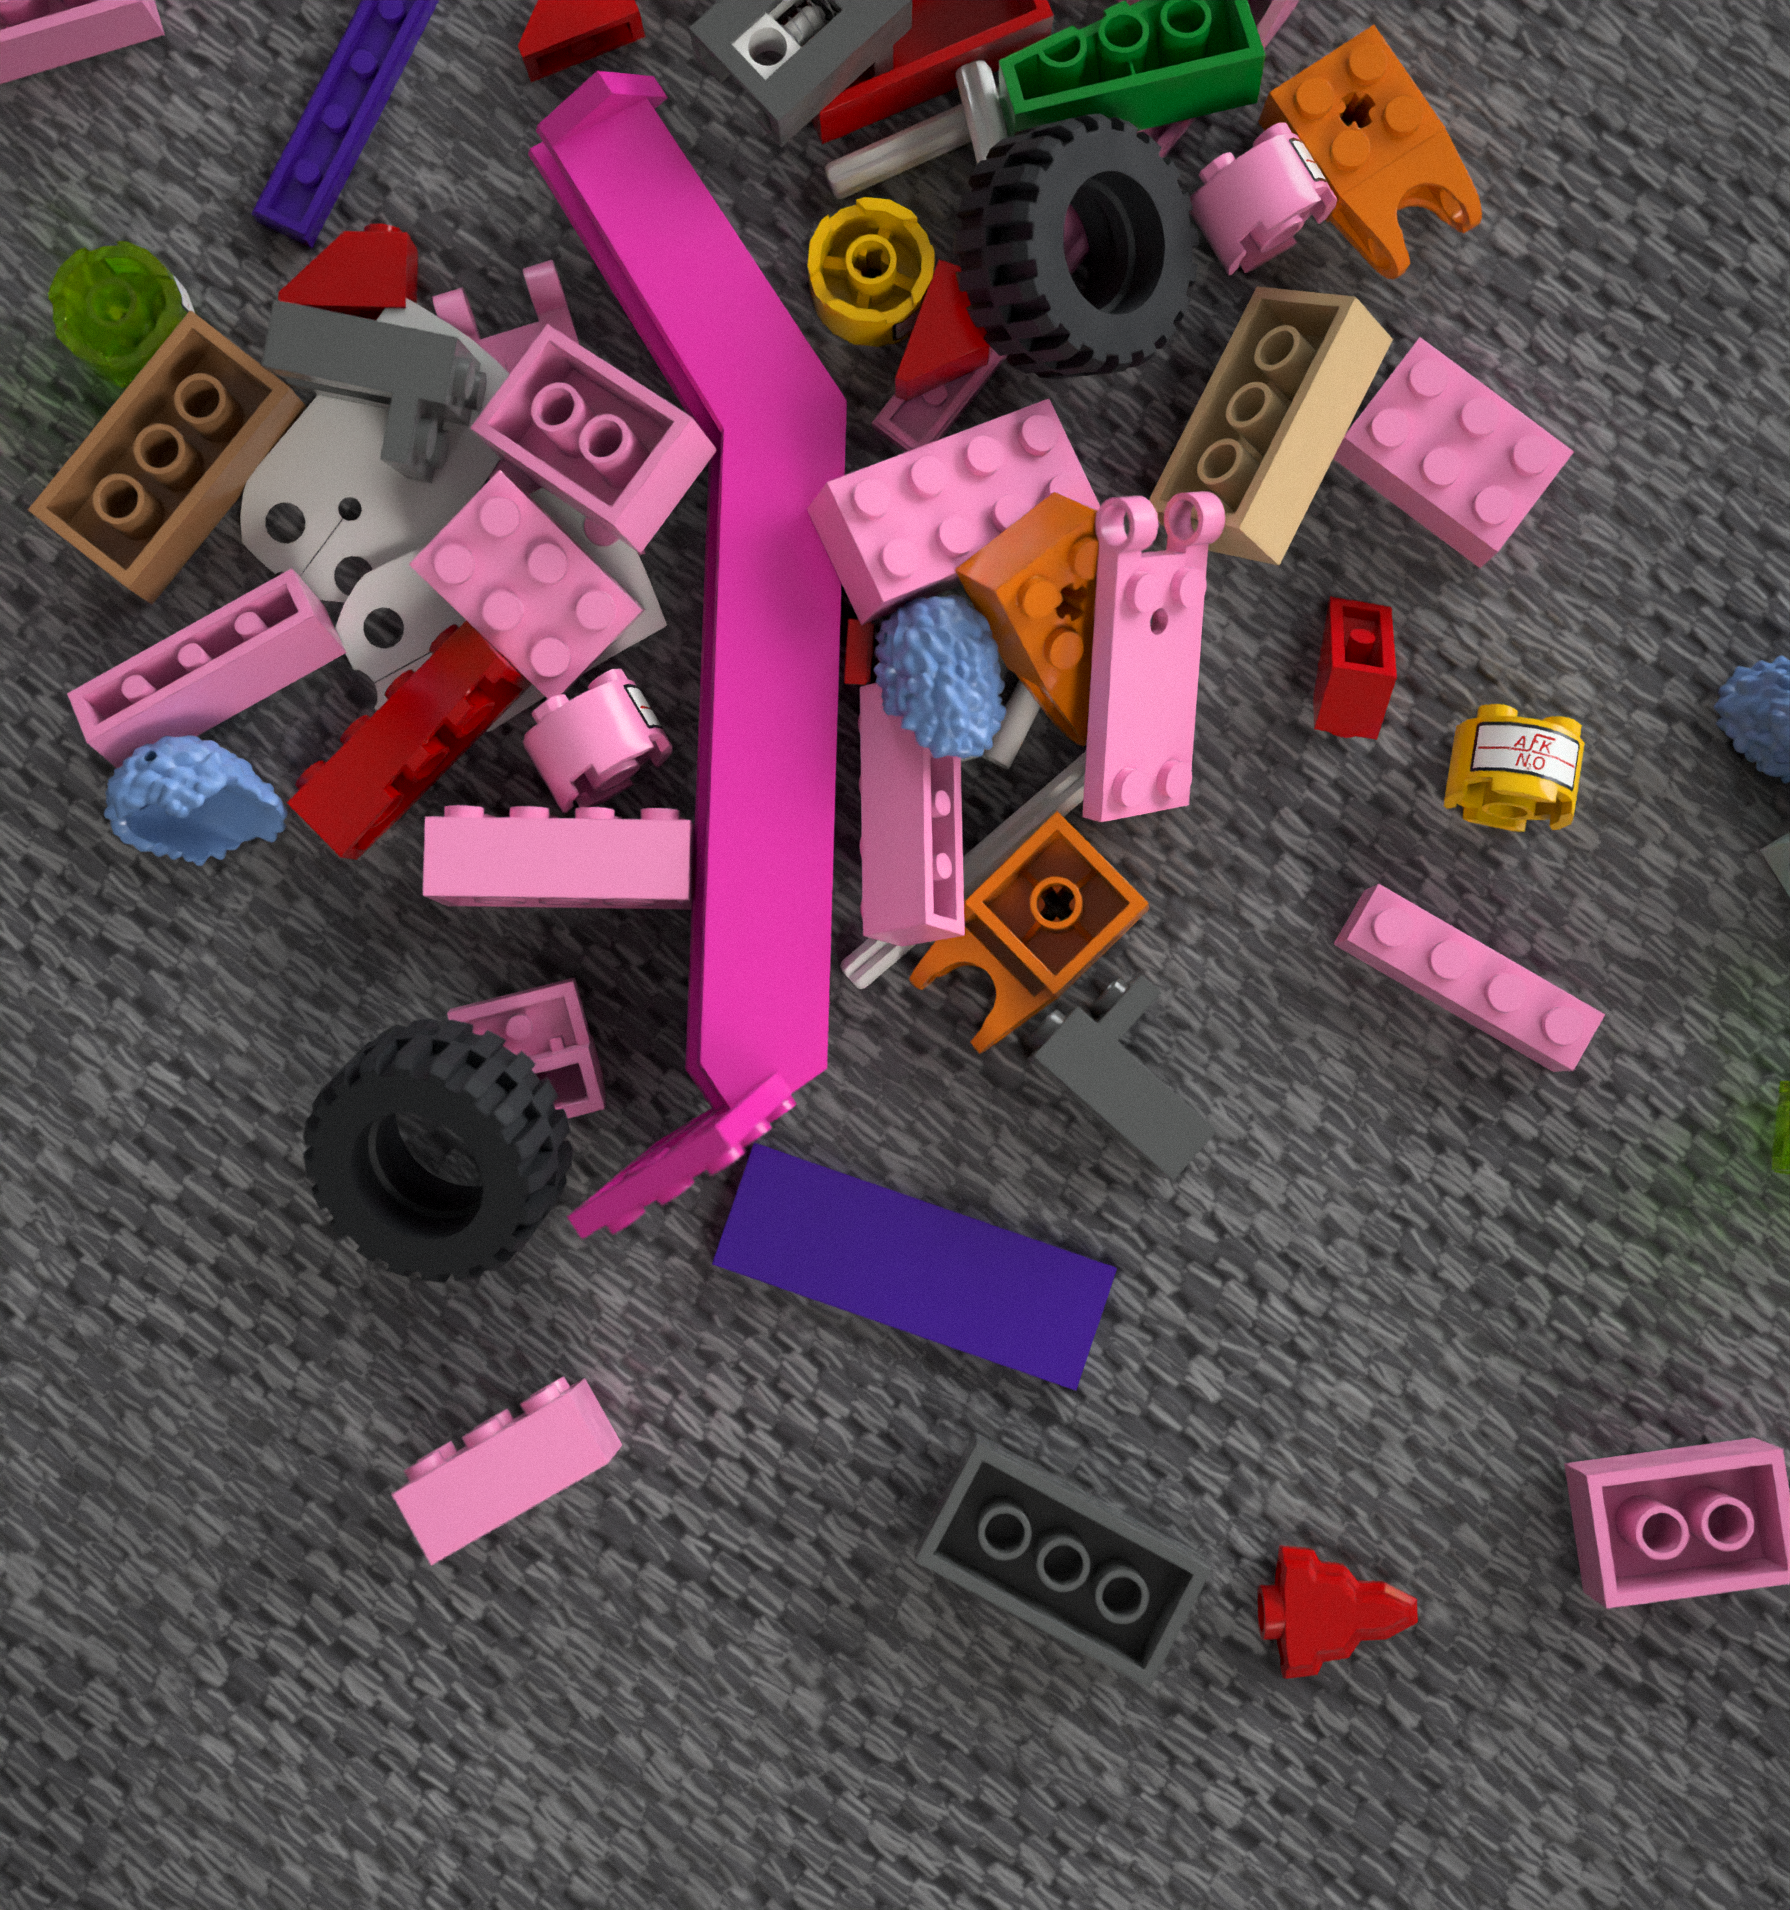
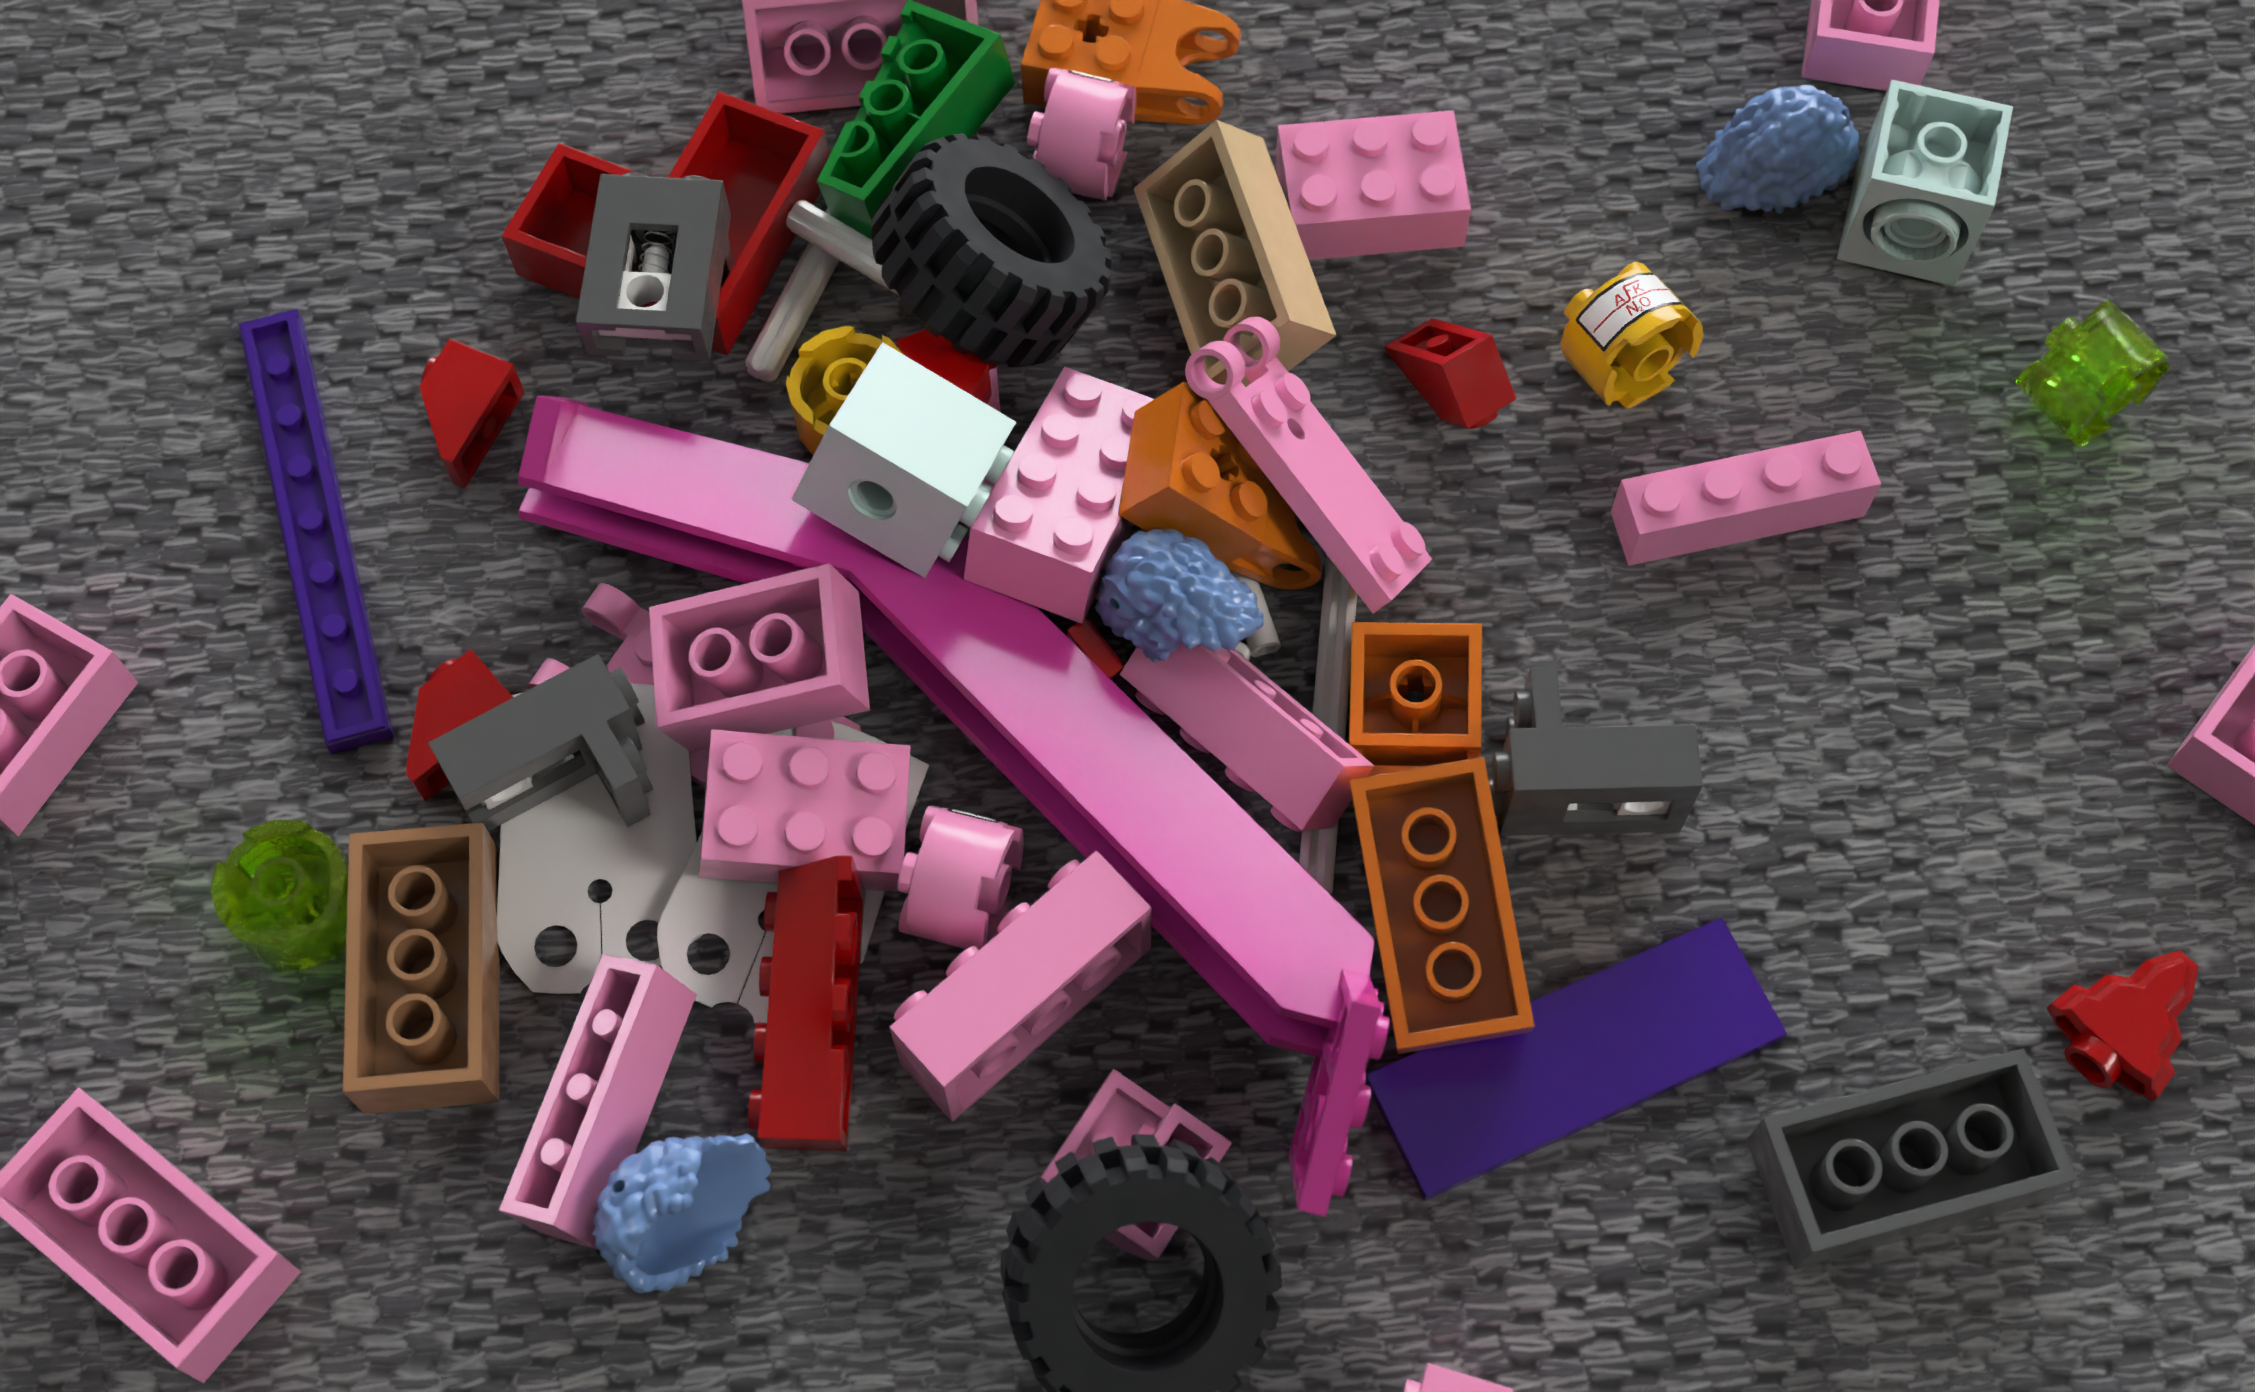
camera: 40 degrees left, 20 degrees down
(832, 381) = (906, 462): none -> light aqua brick
(902, 1085) = (1441, 905): none -> orange brick

